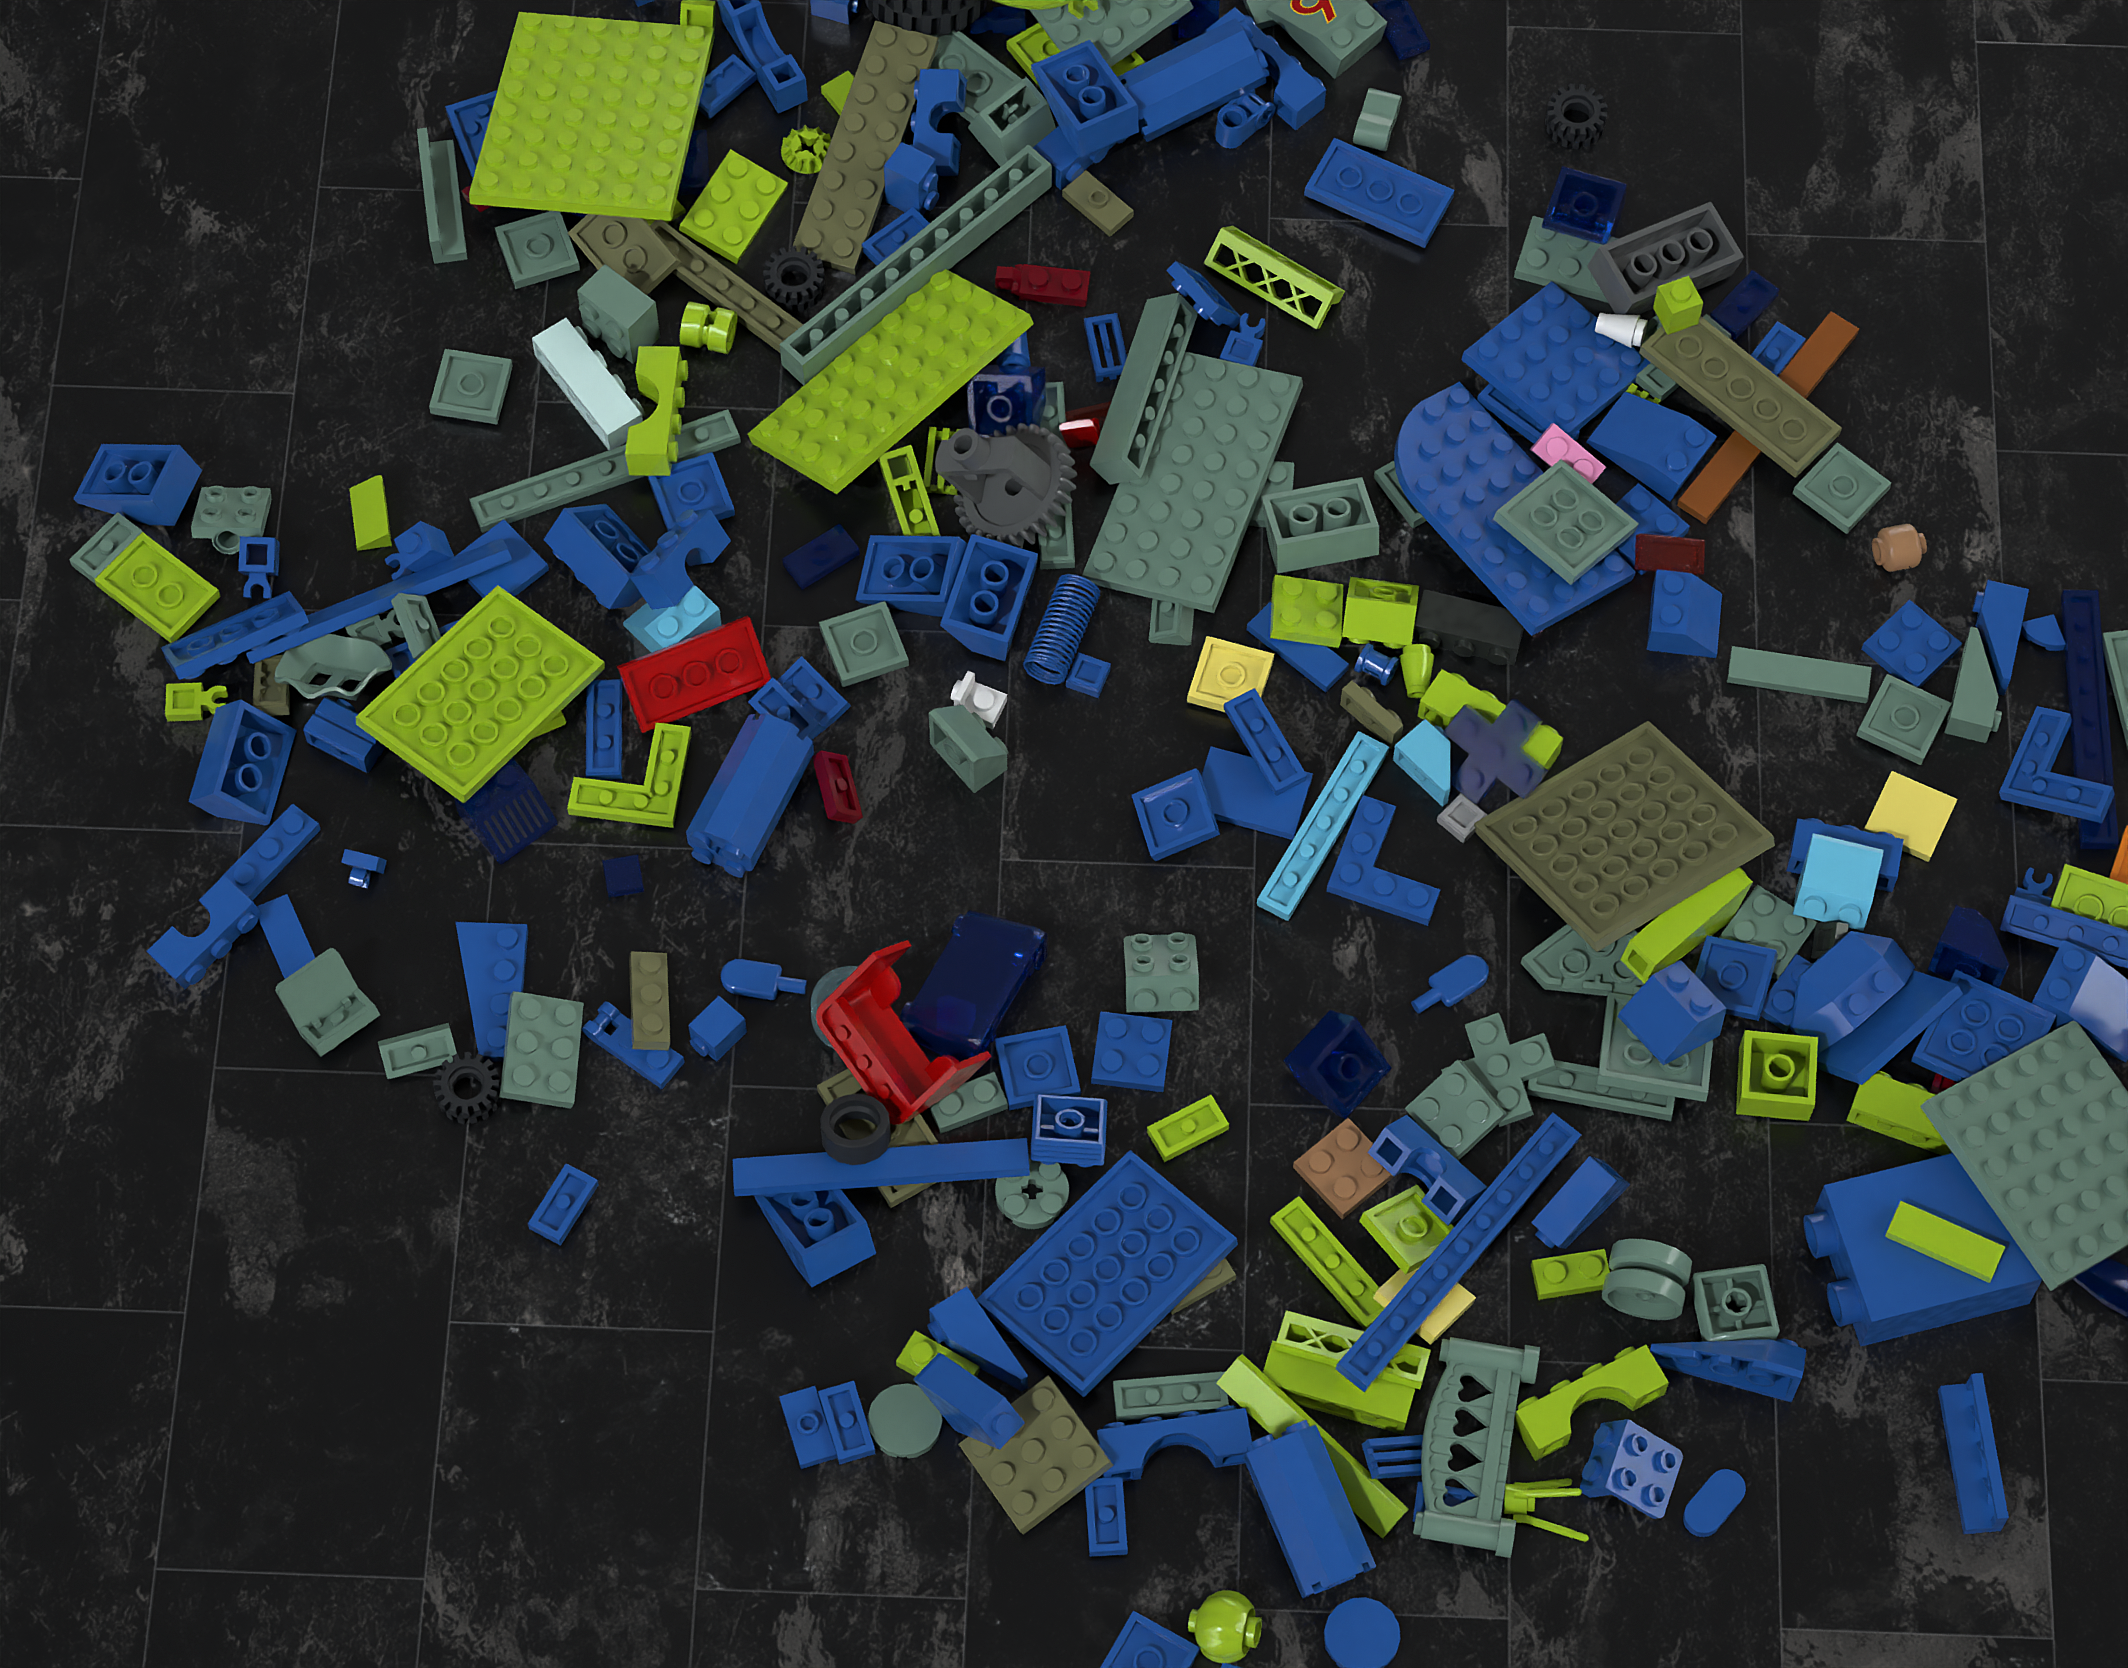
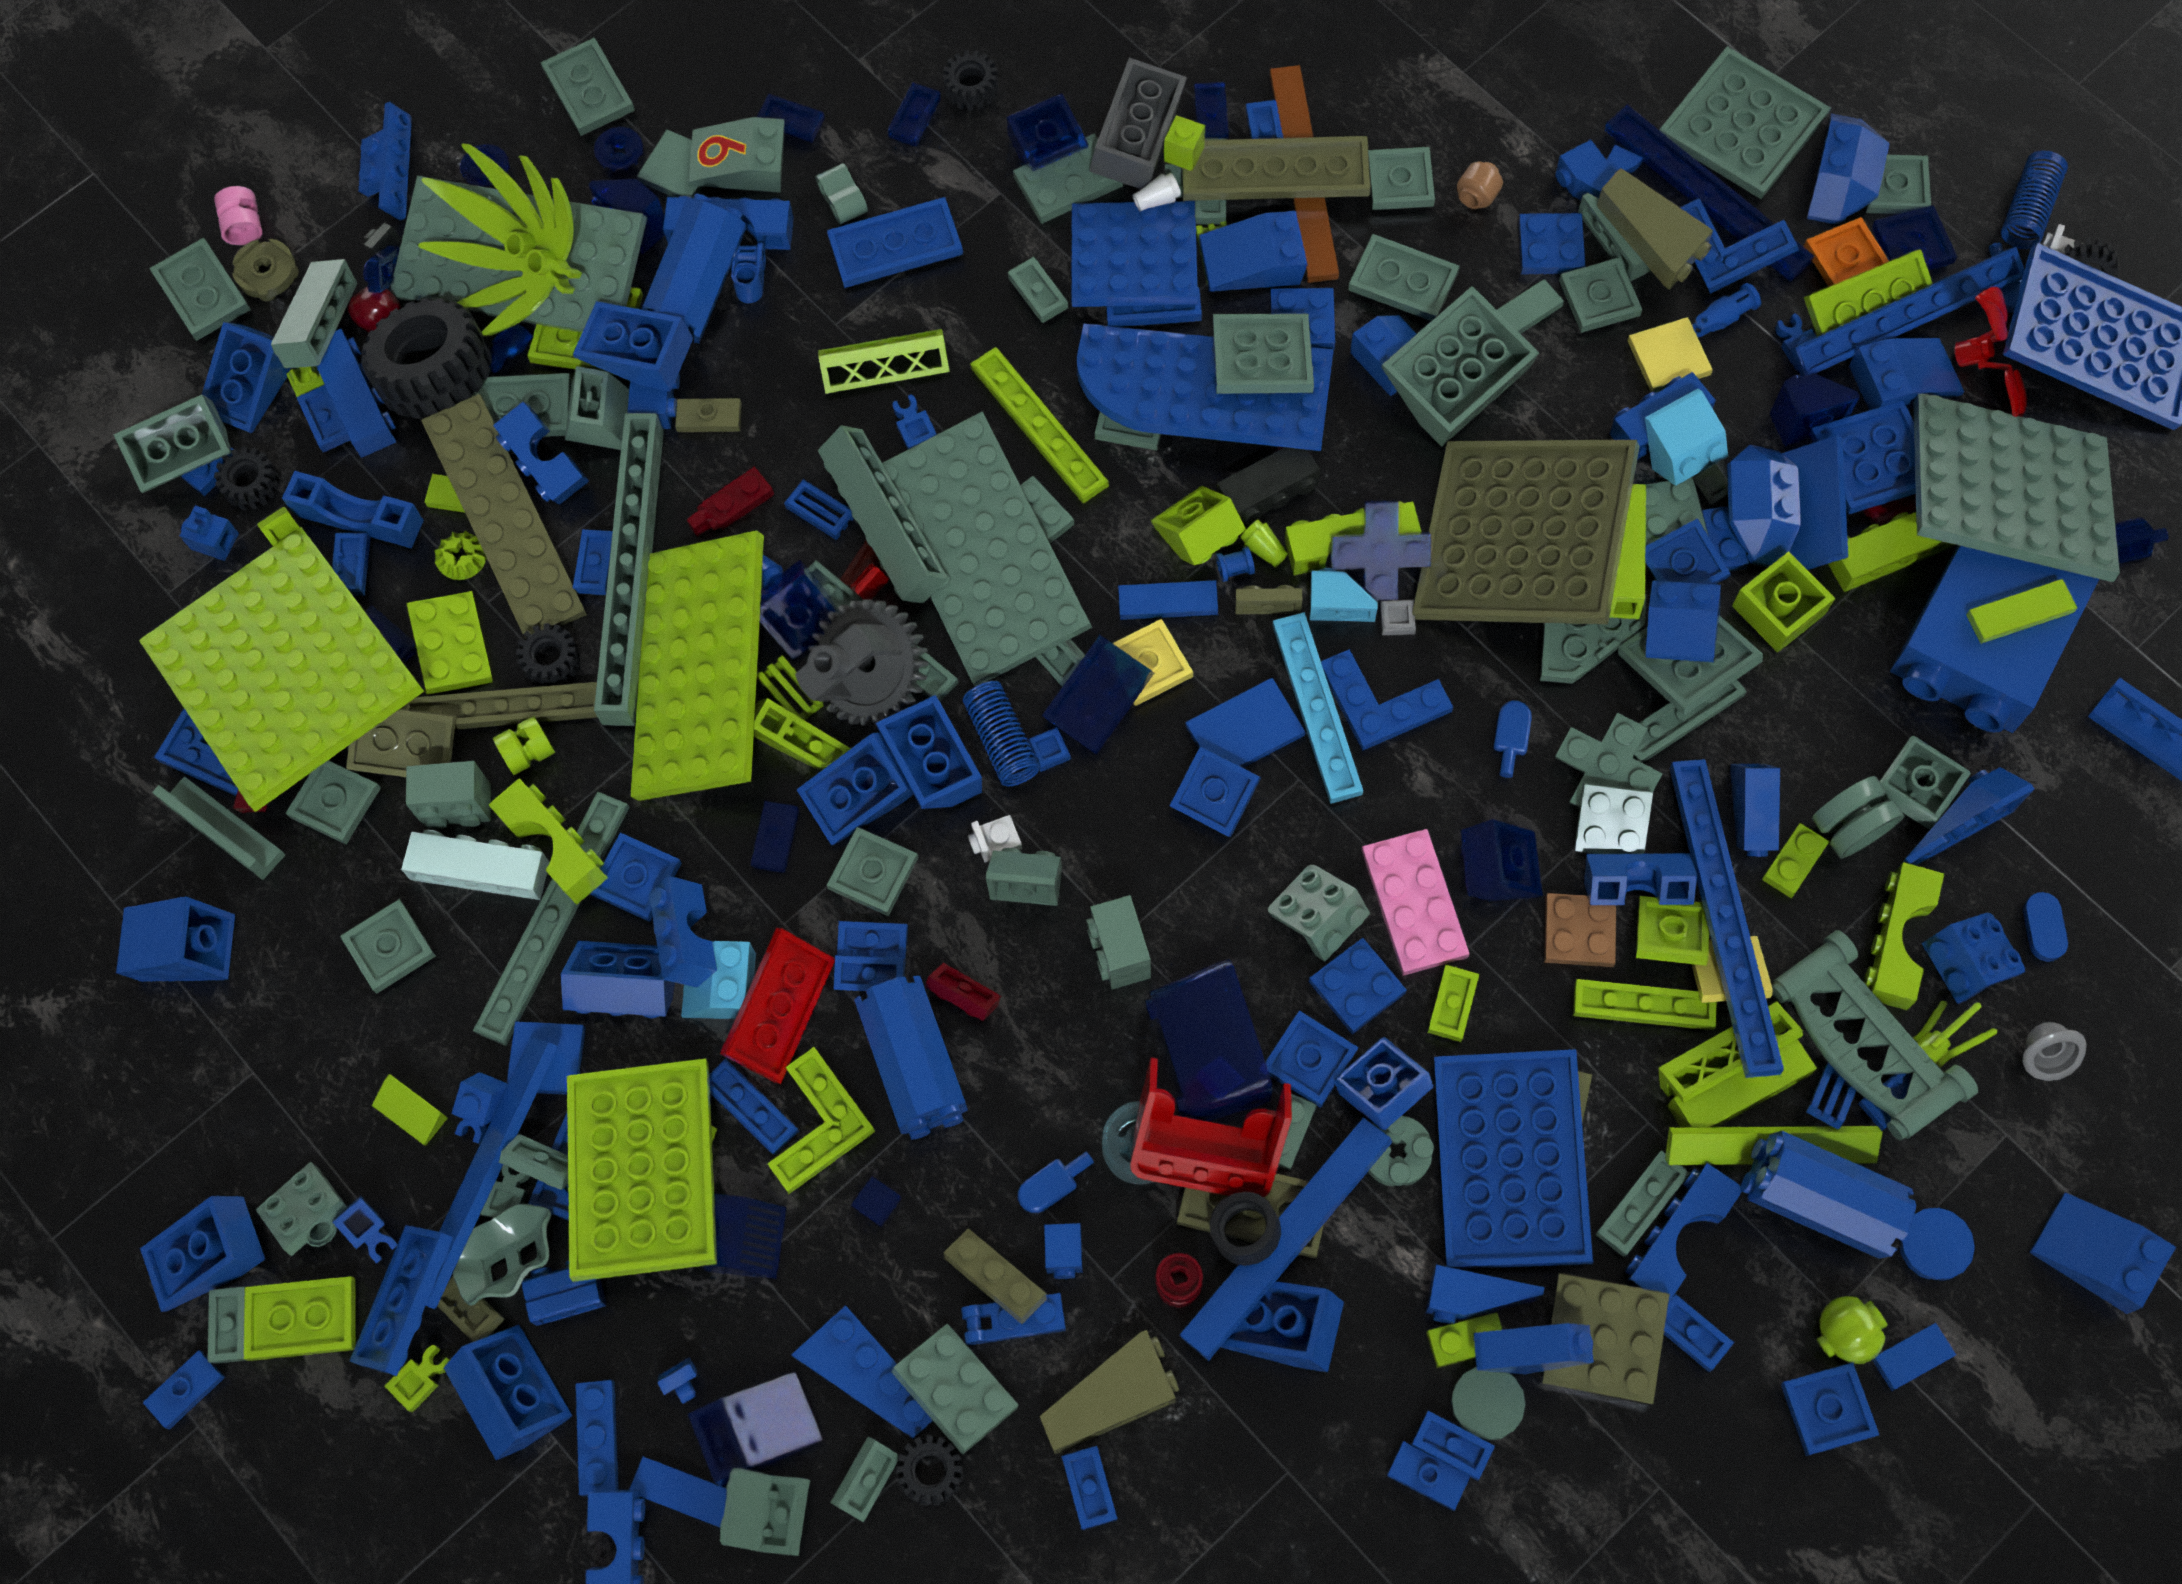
camera: 40 degrees left, 5 degrees up
(36, 565) = (183, 1390): none -> blue plate
(331, 252) = (175, 941): none -> blue slope
(380, 943) = (755, 1427): none -> clear blue slope
(644, 1157) = (1112, 1395): none -> olive slope
(774, 1125) = (1179, 1280): none -> dark red wheel
(911, 180) = (564, 510): blue brick -> none
(983, 853) = (1120, 941): none -> sand green brick
(1163, 665) = (1098, 694): none -> clear blue plate
(1208, 300) = (844, 414): blue plate -> none
(1241, 1033) = (1415, 902): none -> bright pink plate
(1265, 742) = (1223, 684): blue plate -> none
(1306, 611) = (1150, 569): lime plate -> none
(1320, 525) = (1100, 501): sand green slope -> none
(1345, 410) = (1039, 425): none -> lime tile
(1451, 325) = (1037, 290): none -> sand green plate
(1501, 105) = (914, 114): none -> clear blue plate
(1557, 445) = (1198, 309): bright pink plate -> none
(1606, 1588) = (2053, 1051): none -> light grey hat
(1669, 554) = (1343, 318): clear red tile -> none
(1715, 668) = (1458, 365): none -> sand green slope
(1756, 567) = (1403, 278): none -> sand green plate
(1993, 821) = (1727, 310): none -> blue piece
(1996, 701) = (1654, 227): none -> olive slope

